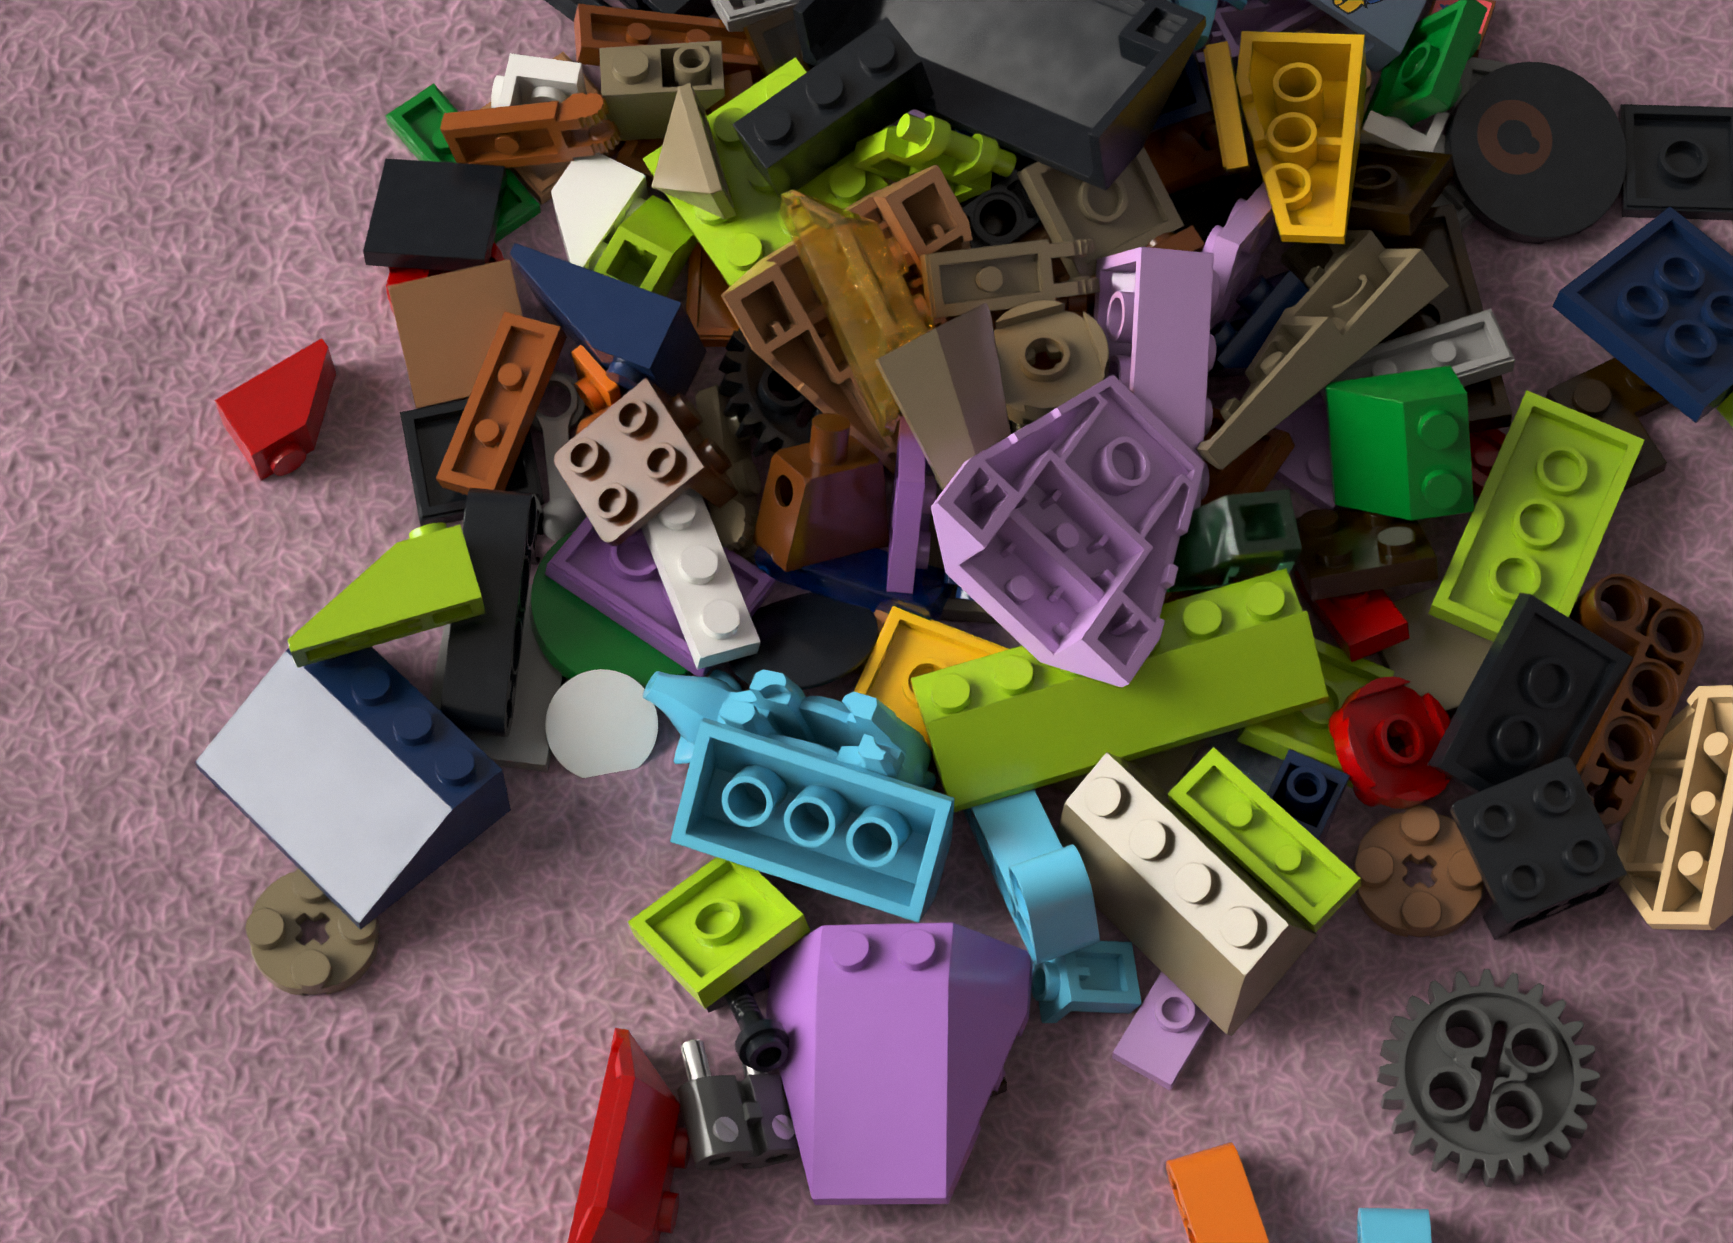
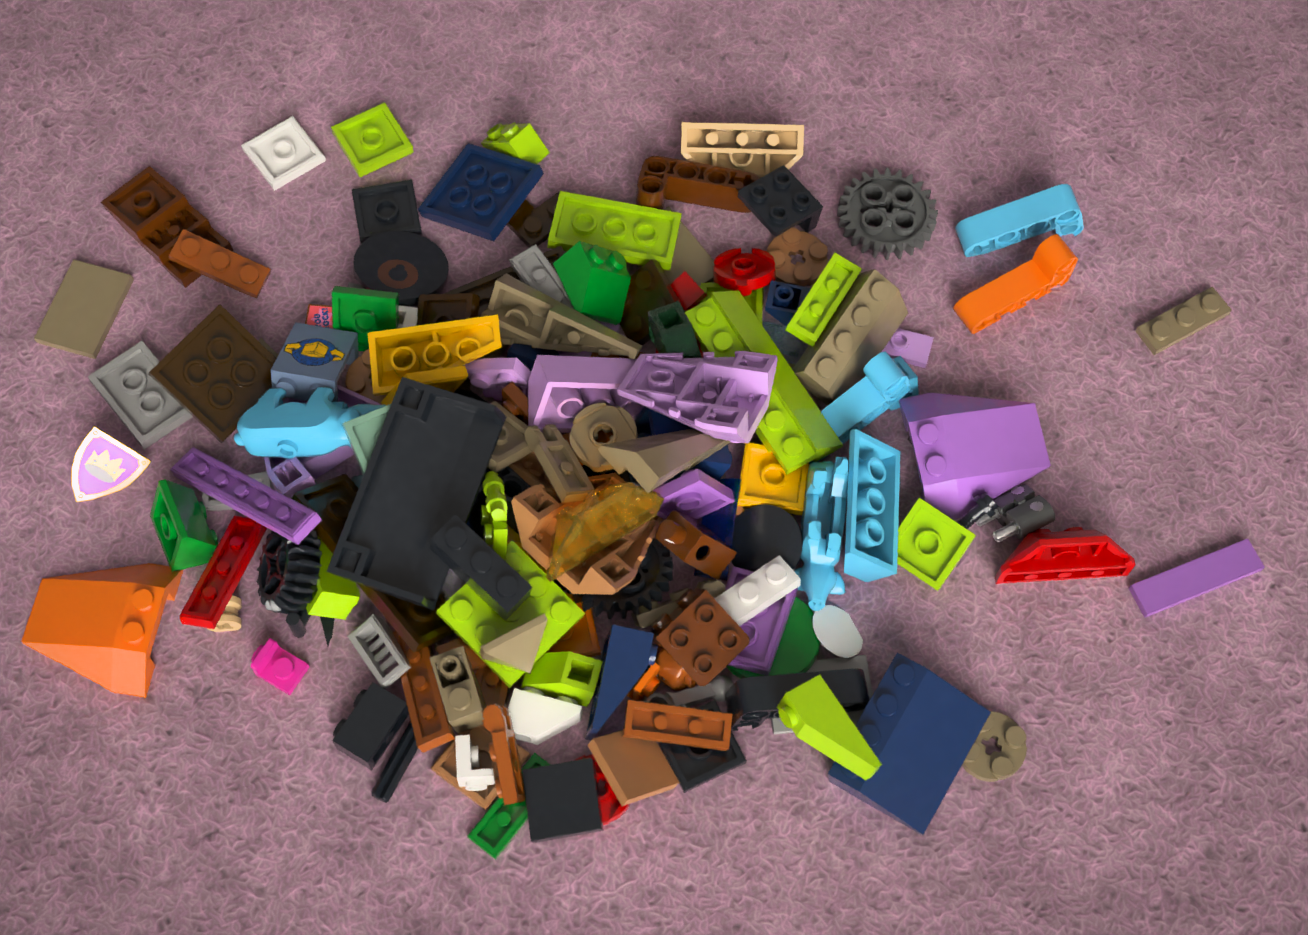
camera: 110 degrees left, 0 degrees up
(280, 411) = (704, 853): red slope -> none
(1530, 698) = (713, 216): black plate -> none

